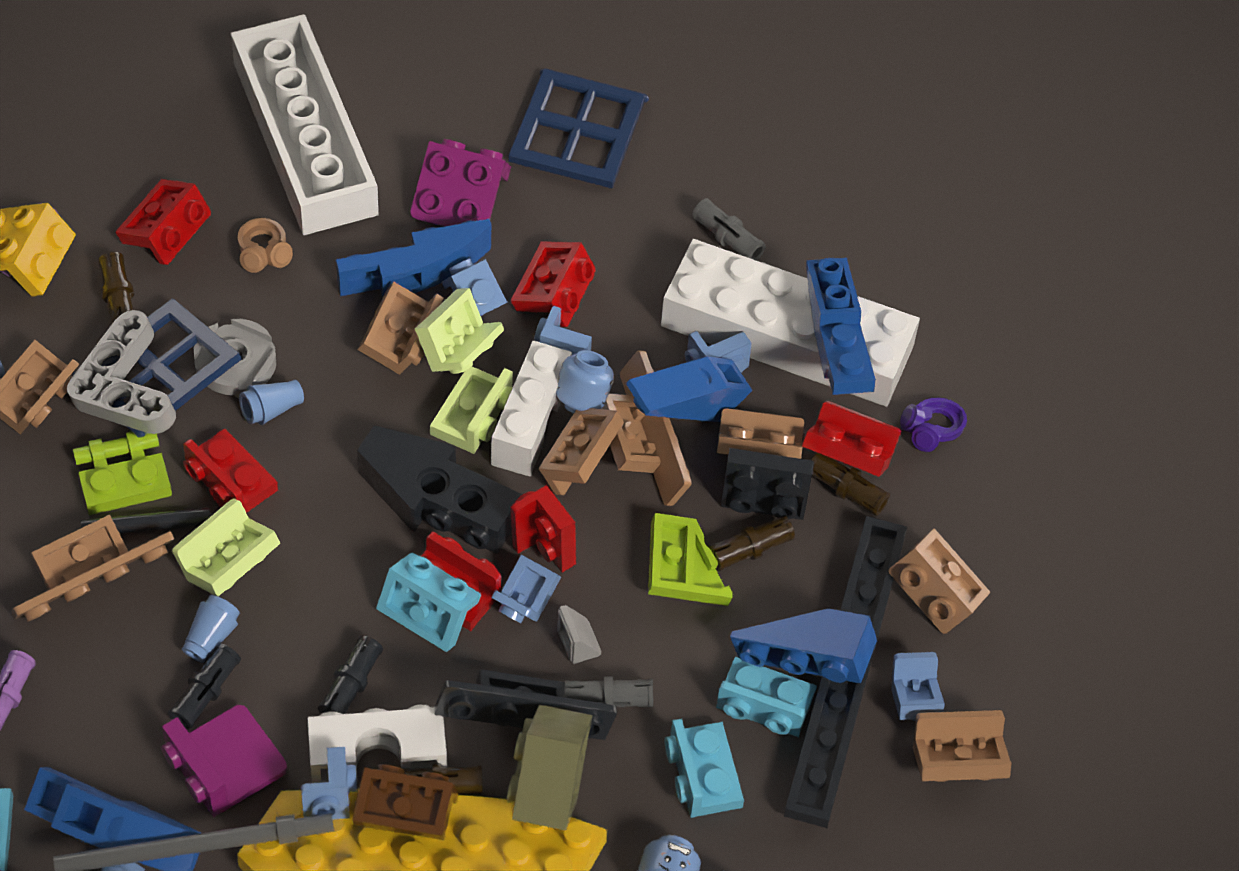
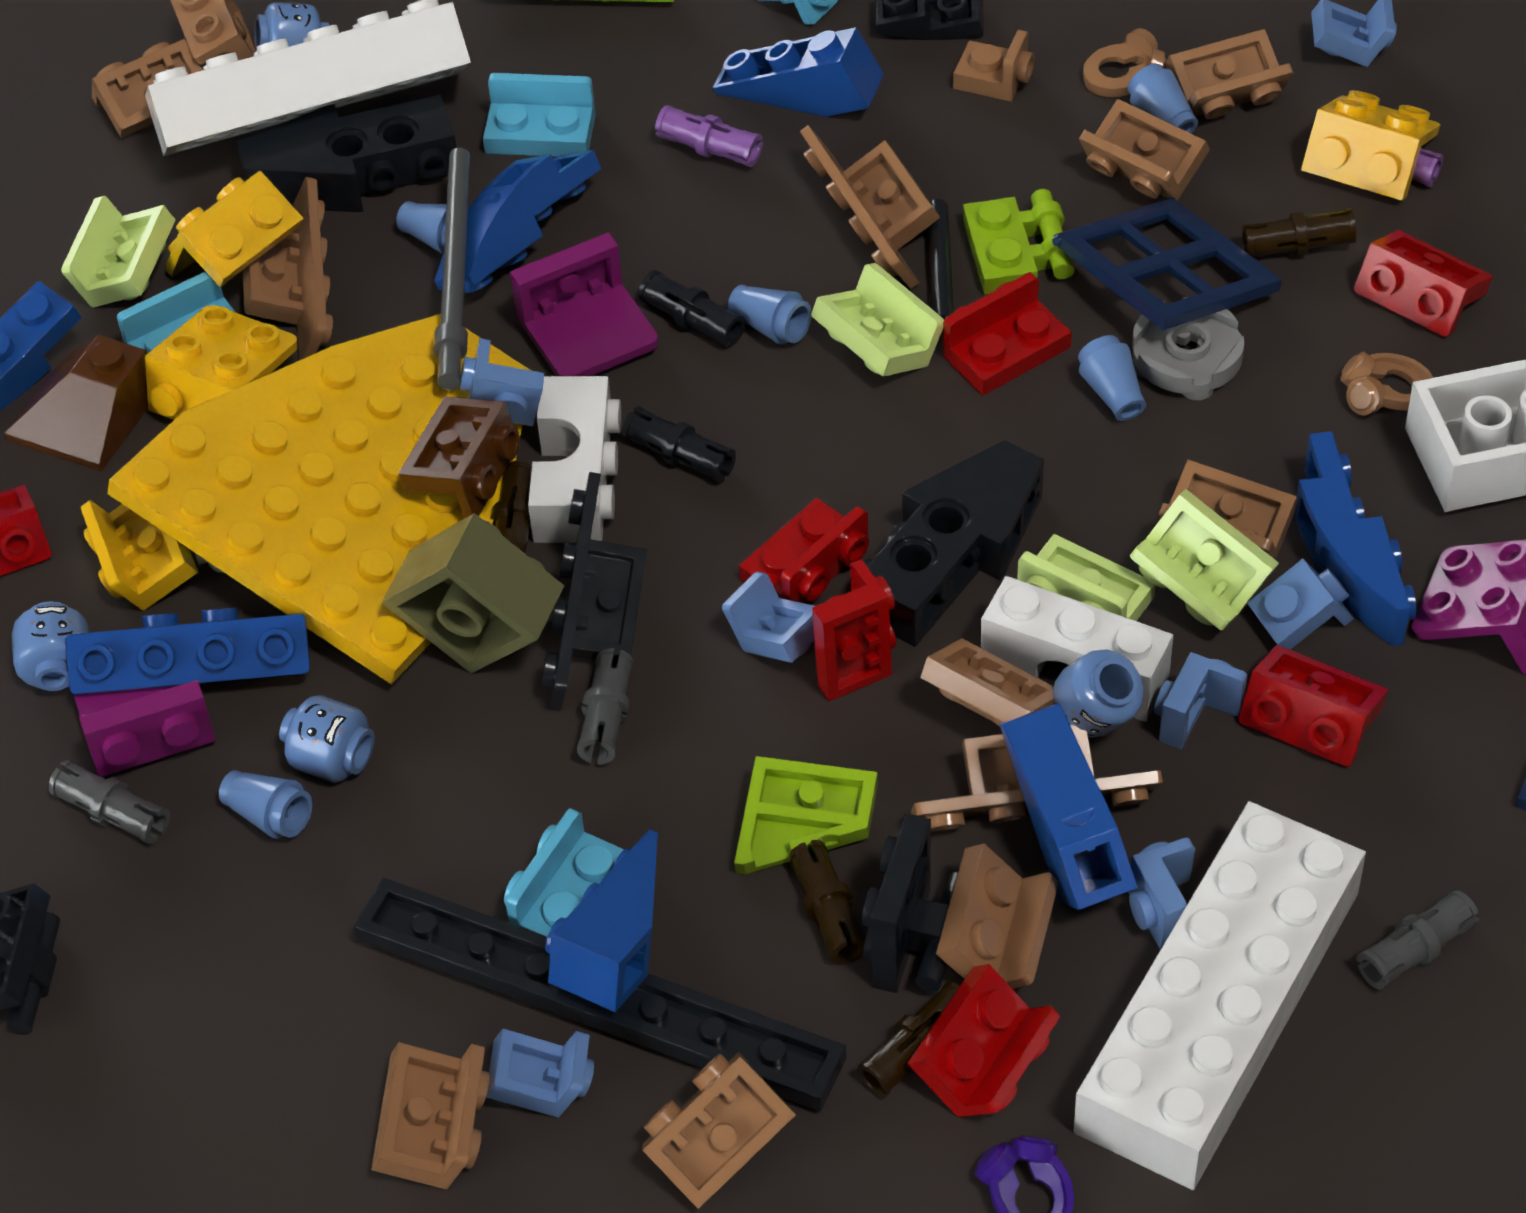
camera: 105 degrees right, 5 degrees down
(98, 386) = (1139, 200): light grey beam -> none
(427, 600) = (777, 515): medium azure bracket -> none
(577, 635) = (703, 678): light grey slope -> none
(705, 768) = (475, 800): medium azure bracket -> none
(838, 327) = (1153, 1001): blue slope -> none

